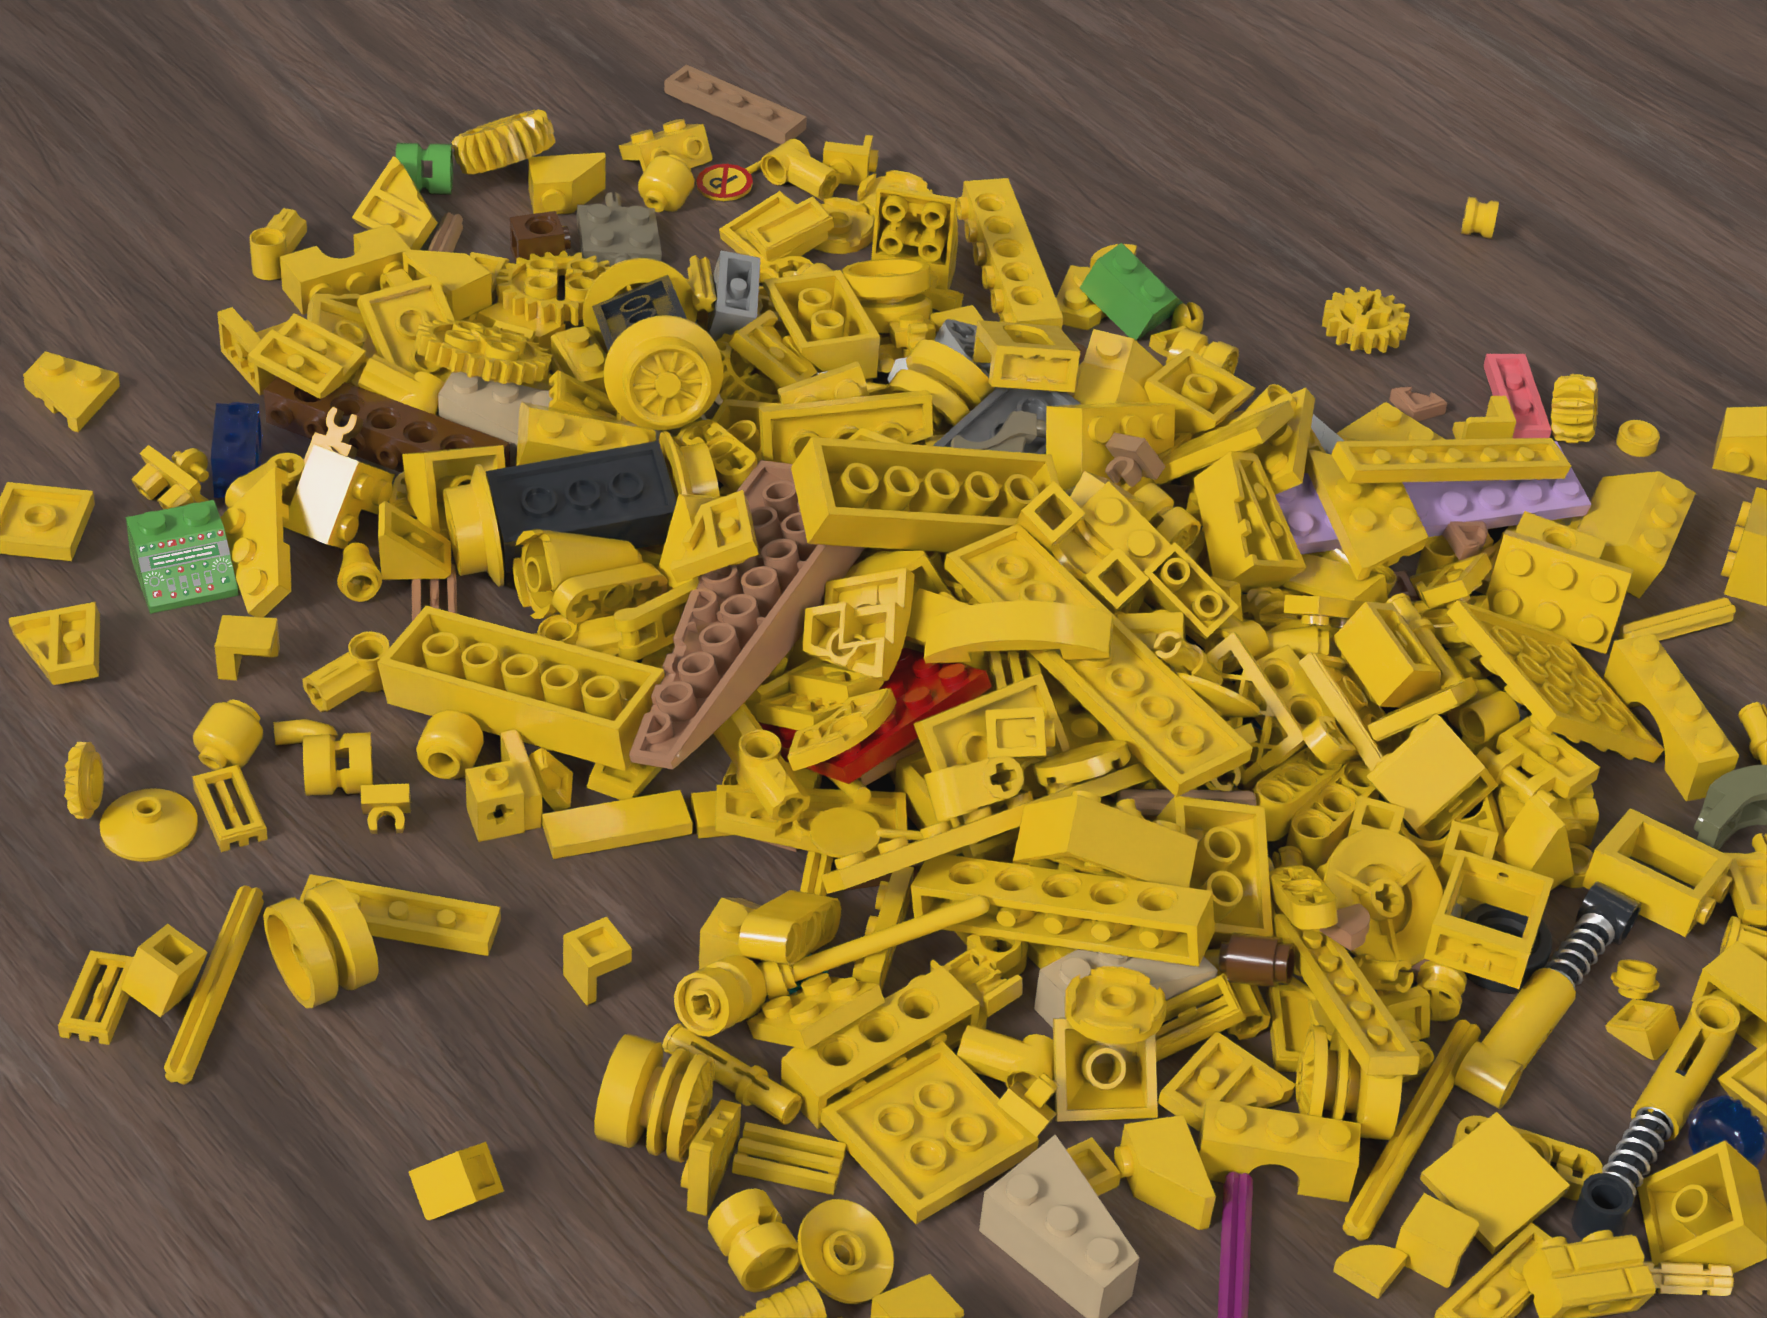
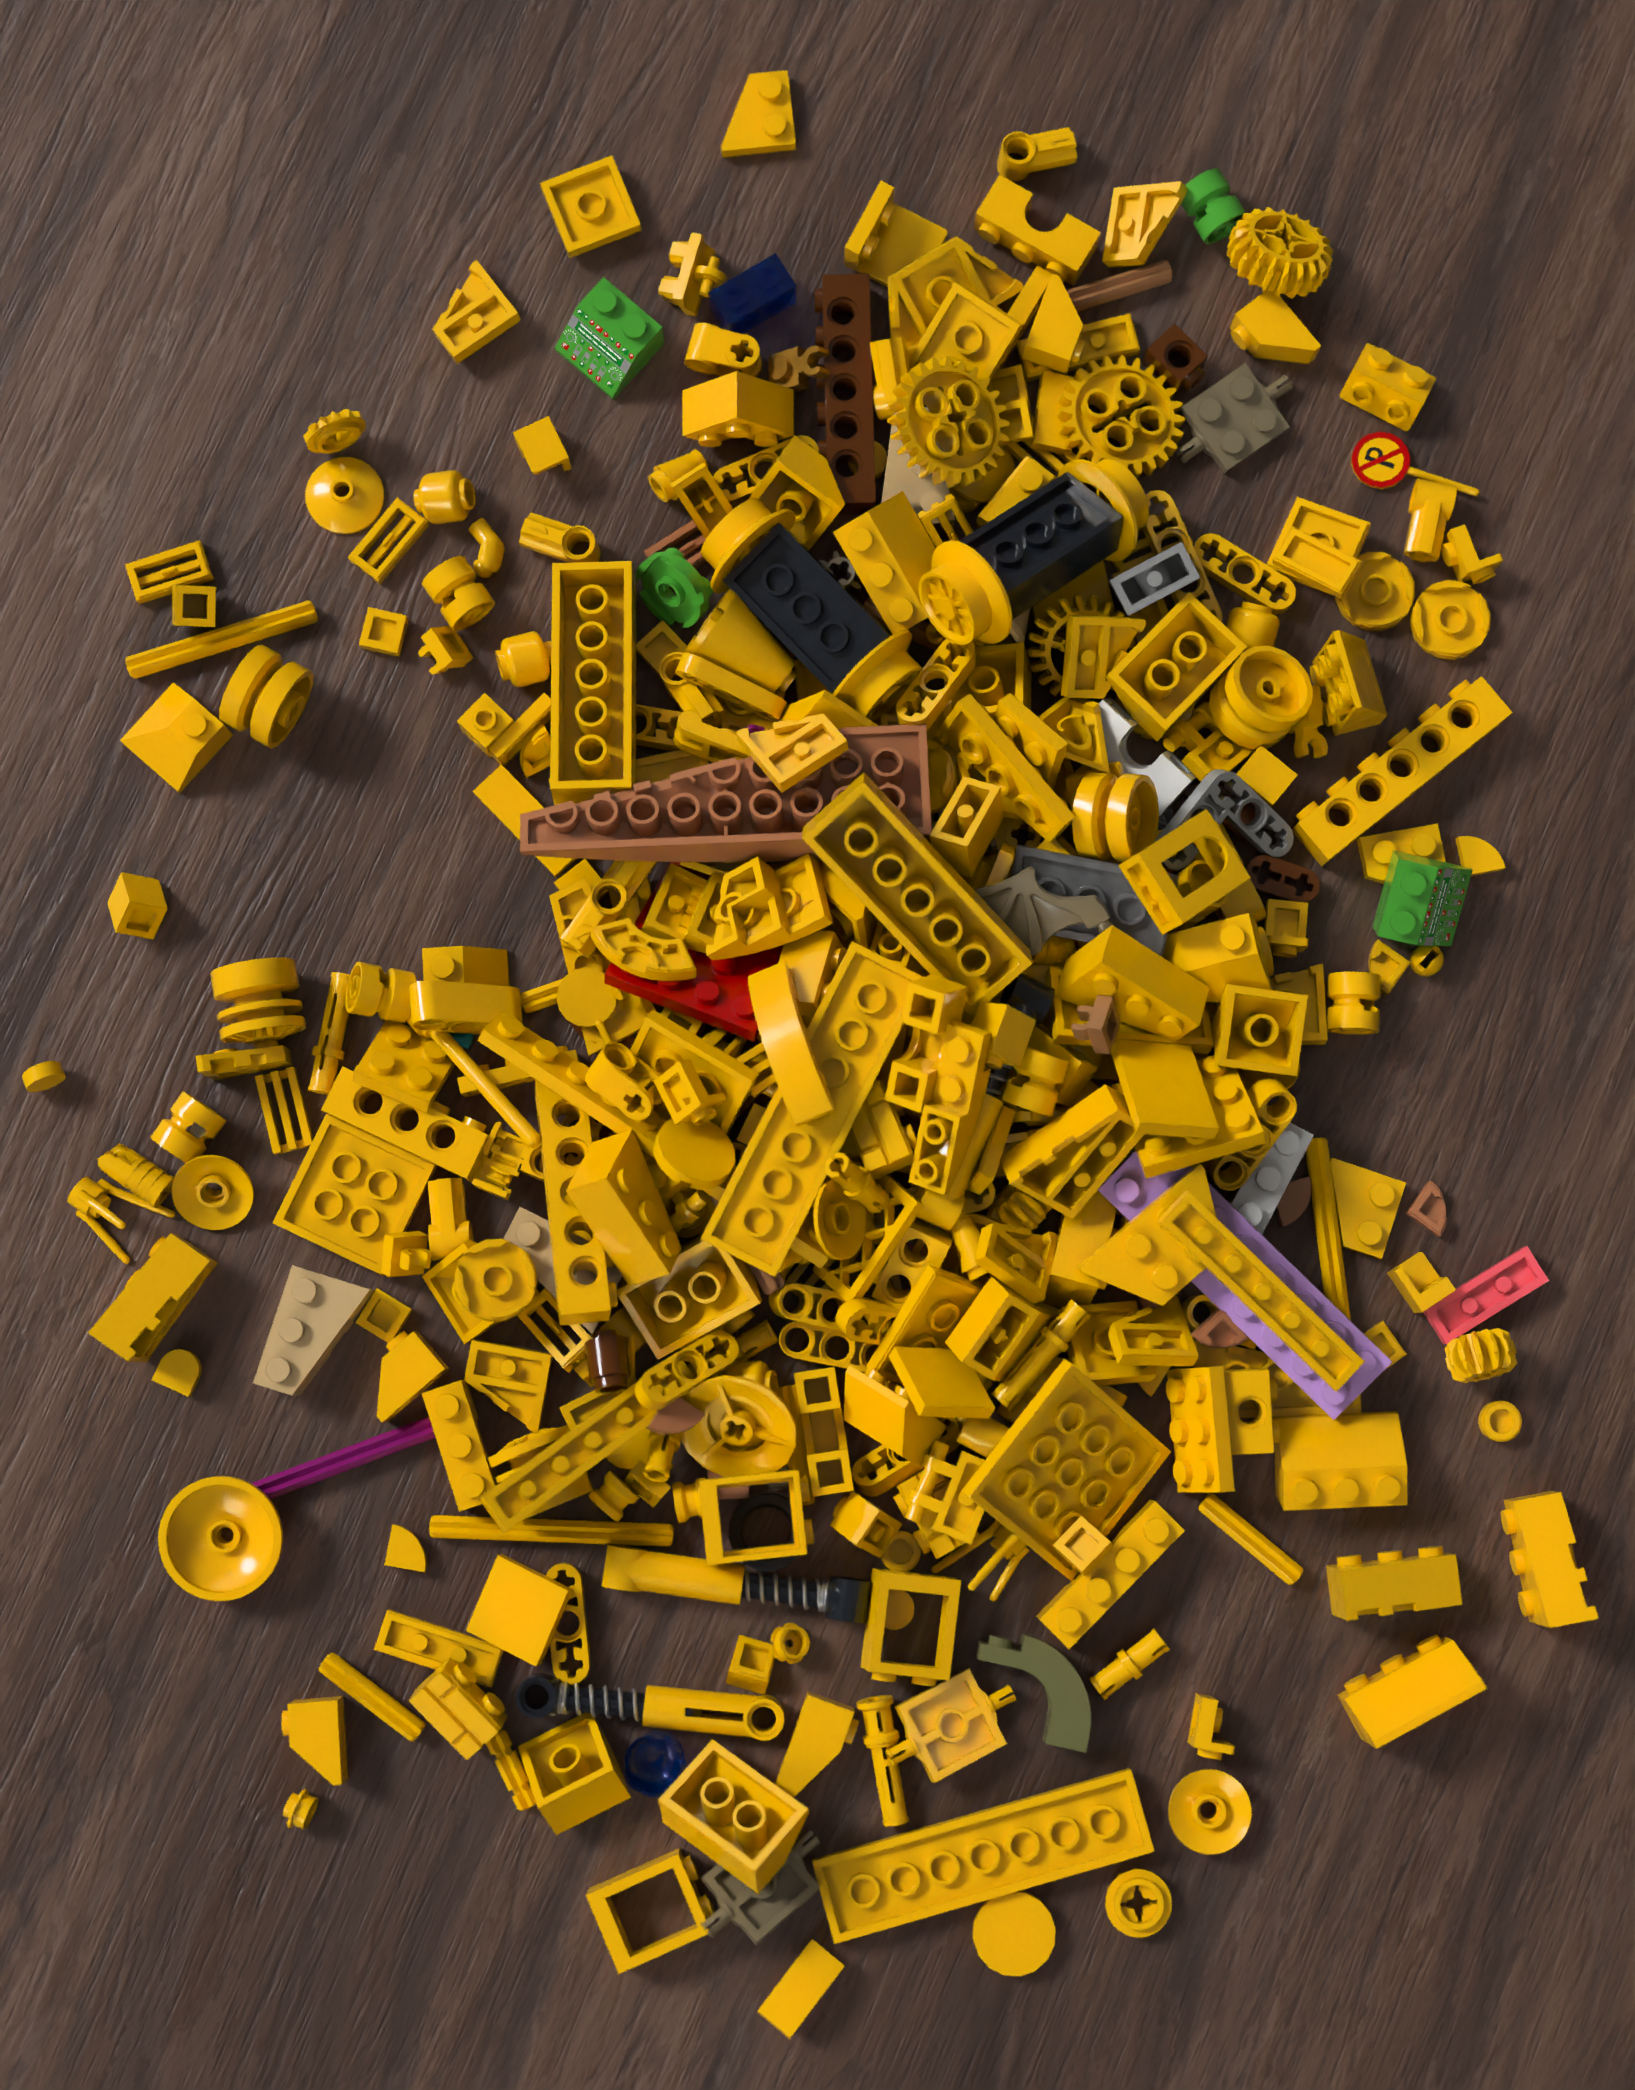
camera: 65 degrees right, 40 degrees up
(257, 544) = (654, 378): yellow wing -> none
(289, 1061) = (176, 737): none -> yellow slope
(308, 356) = (863, 288): yellow slope -> none
(322, 850) = (383, 631): none -> yellow tile
(422, 917) = (347, 724): yellow plate -> none
(478, 576) = (672, 570): none -> bright green plate
(591, 953) = (372, 885): yellow panel -> none
(666, 183) = (1327, 418): yellow head -> none
(702, 283) = (1160, 540): yellow axle -> none
(735, 104) = (1496, 407): medium nougat plate -> none
(910, 331) = (1209, 748): yellow plate -> none
(1365, 320) = (1515, 1134): yellow gear -> none
(1436, 1239) = (443, 1587): yellow panel -> none
(1610, 781) = (1004, 1543): none -> yellow plant
(1638, 702) = (1083, 1546): none -> yellow tile

